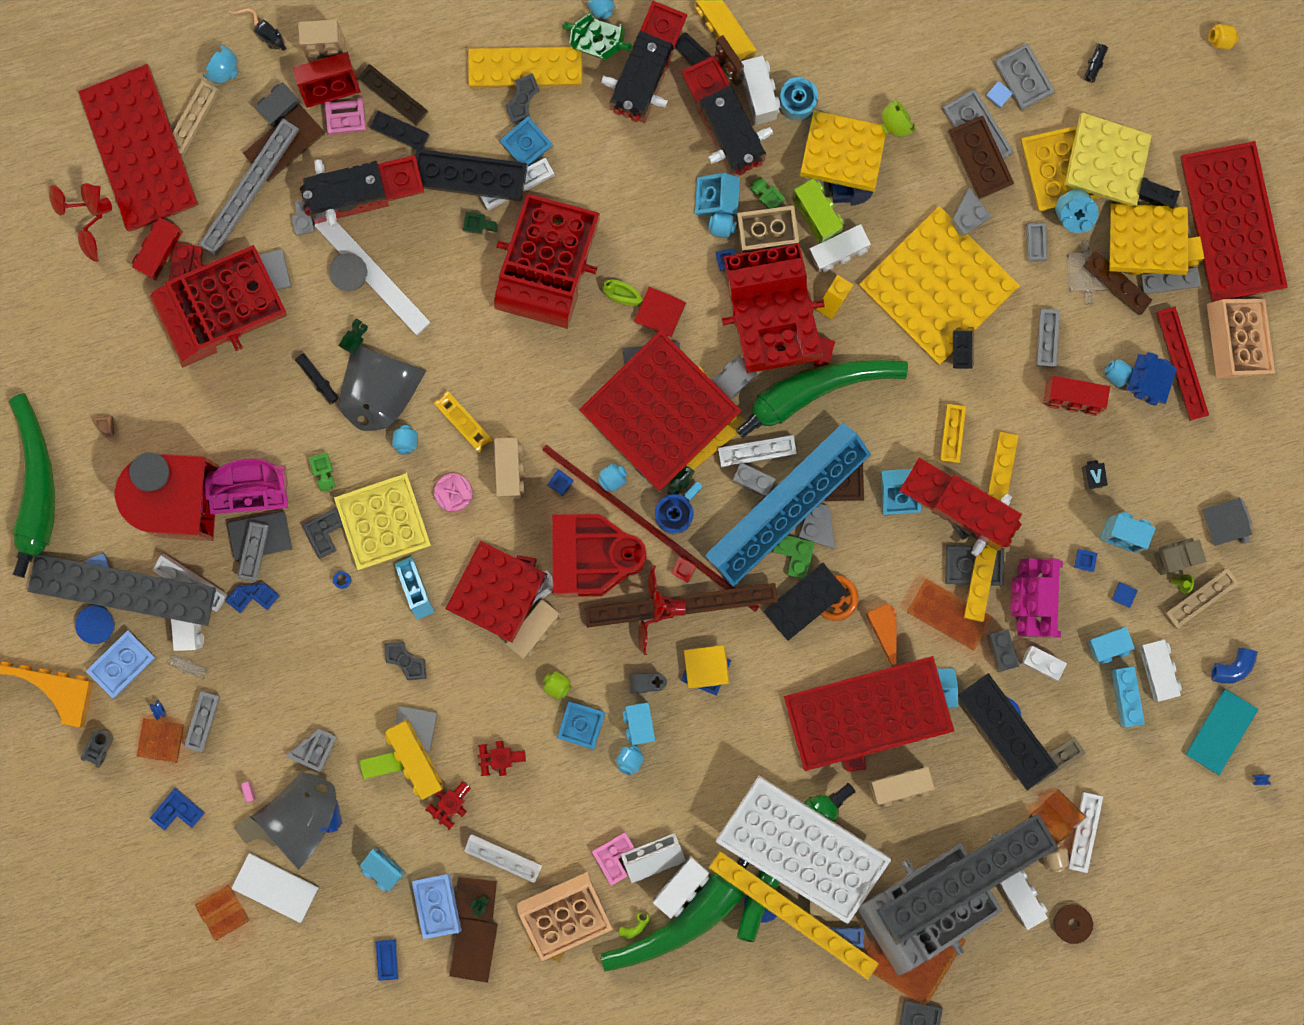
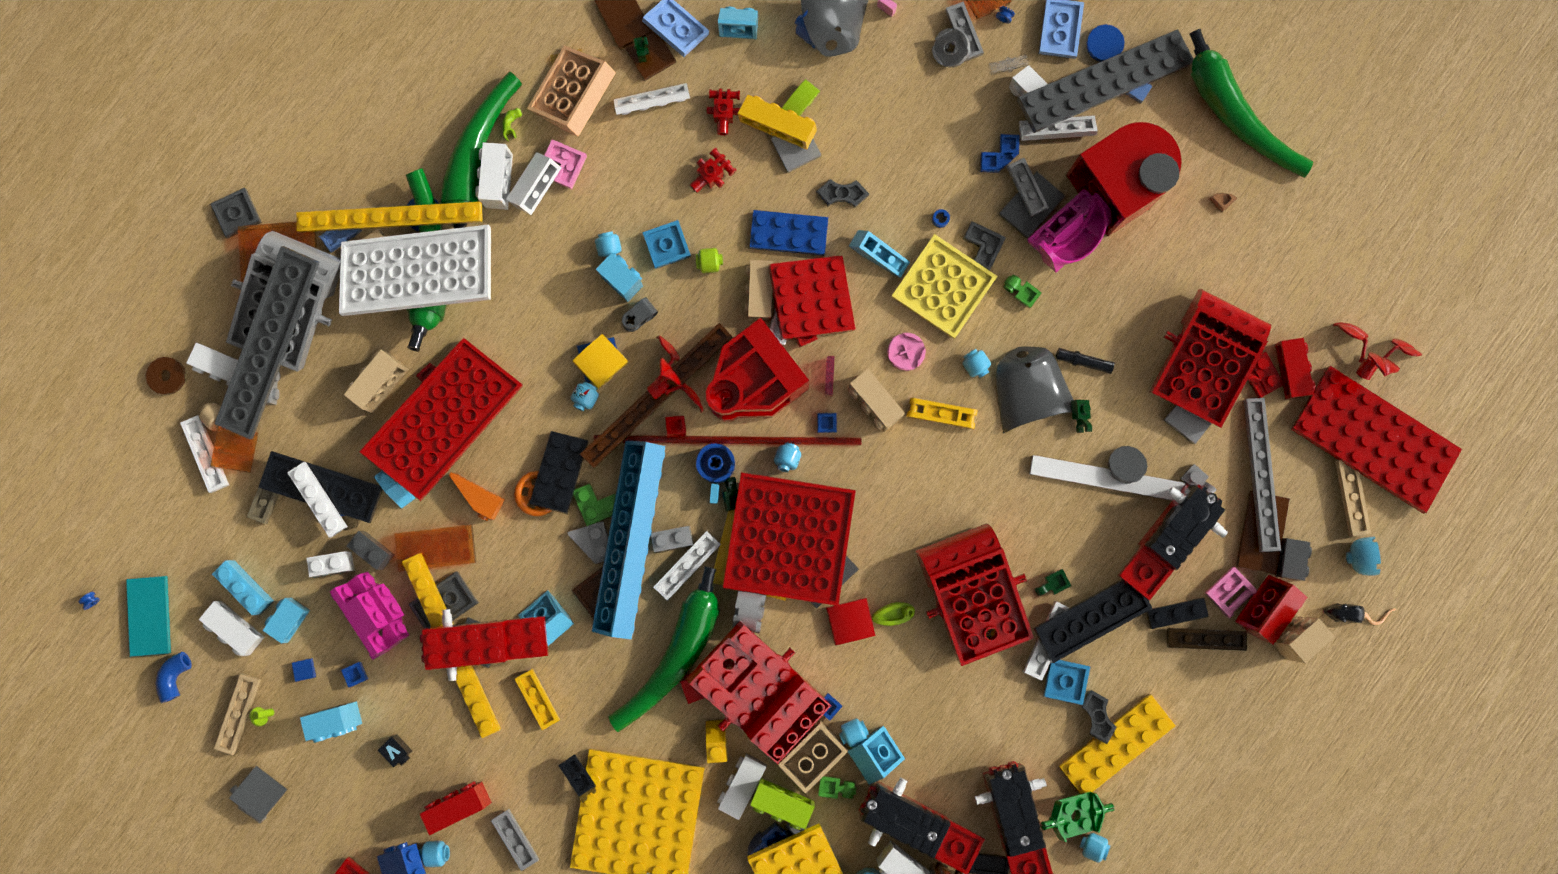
camera: 150 degrees right, 0 degrees up
(230, 723) = (961, 50): none -> light grey plate
(314, 750) = (860, 73): light grey wing -> none
(474, 661) = (788, 232): none -> blue plate
(530, 517) = (829, 375): none -> clear pink tile
(740, 648) = (584, 396): none -> medium azure head
(1016, 721) = (317, 499): none -> white plate
(1182, 556) = (276, 734): dark tan brick -> none

